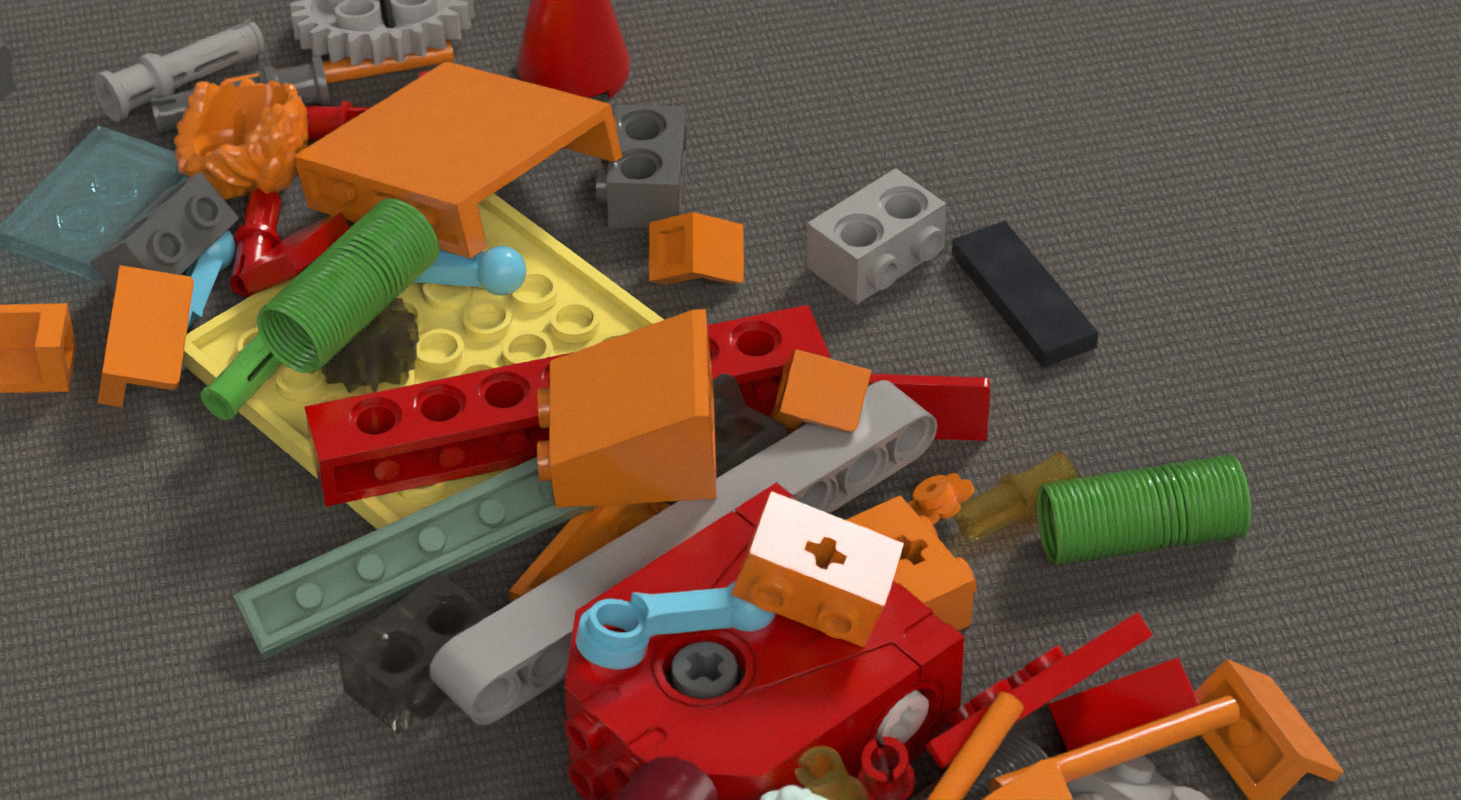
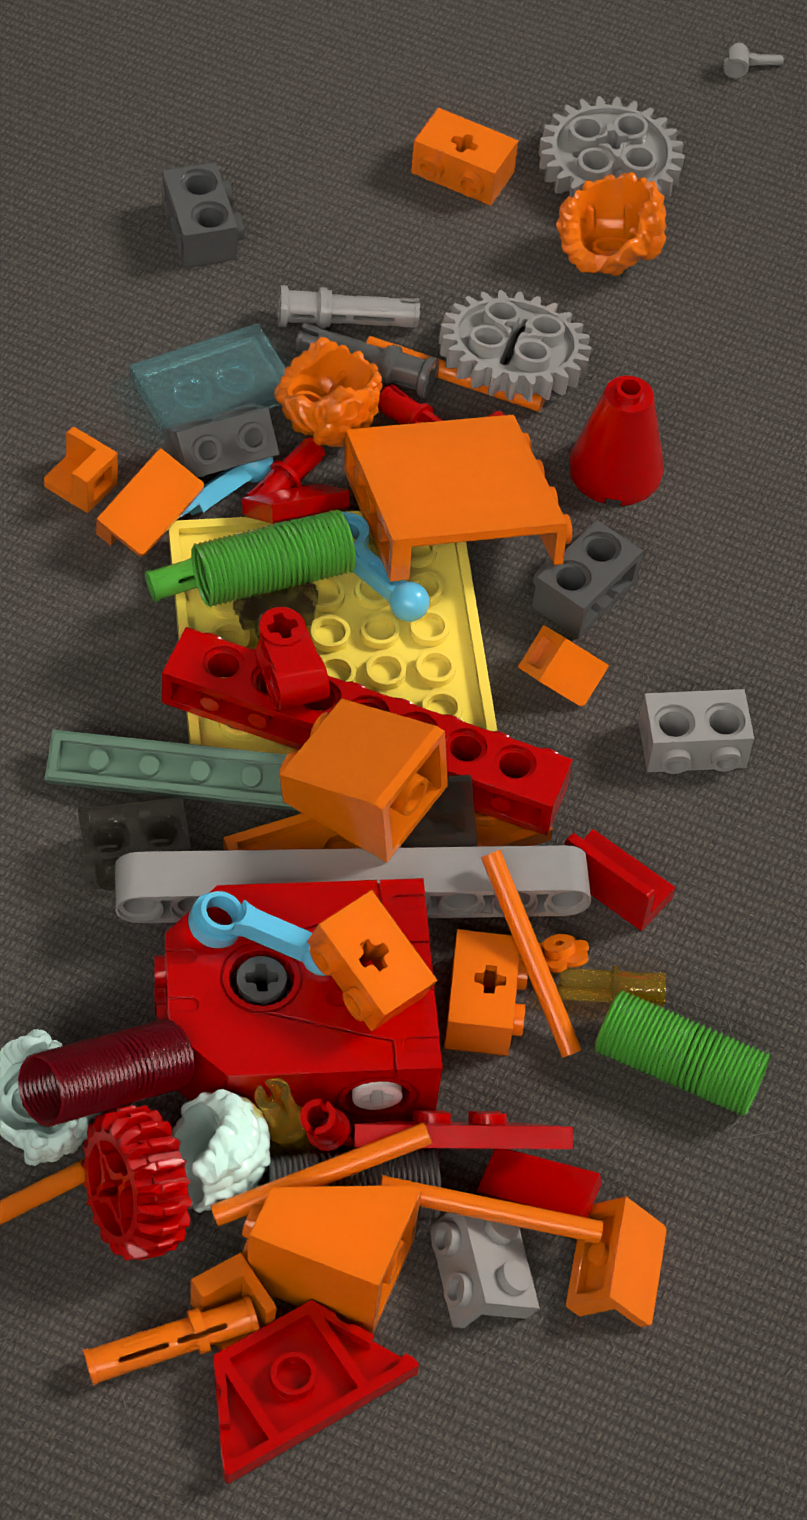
camera: 30 degrees right, 10 degrees up
(454, 366) = (289, 660): none -> red piece
(820, 392) = (516, 831): orange panel -> none
(926, 502) = (531, 953): none -> orange bar
(1024, 294) = (764, 838): black tile -> none

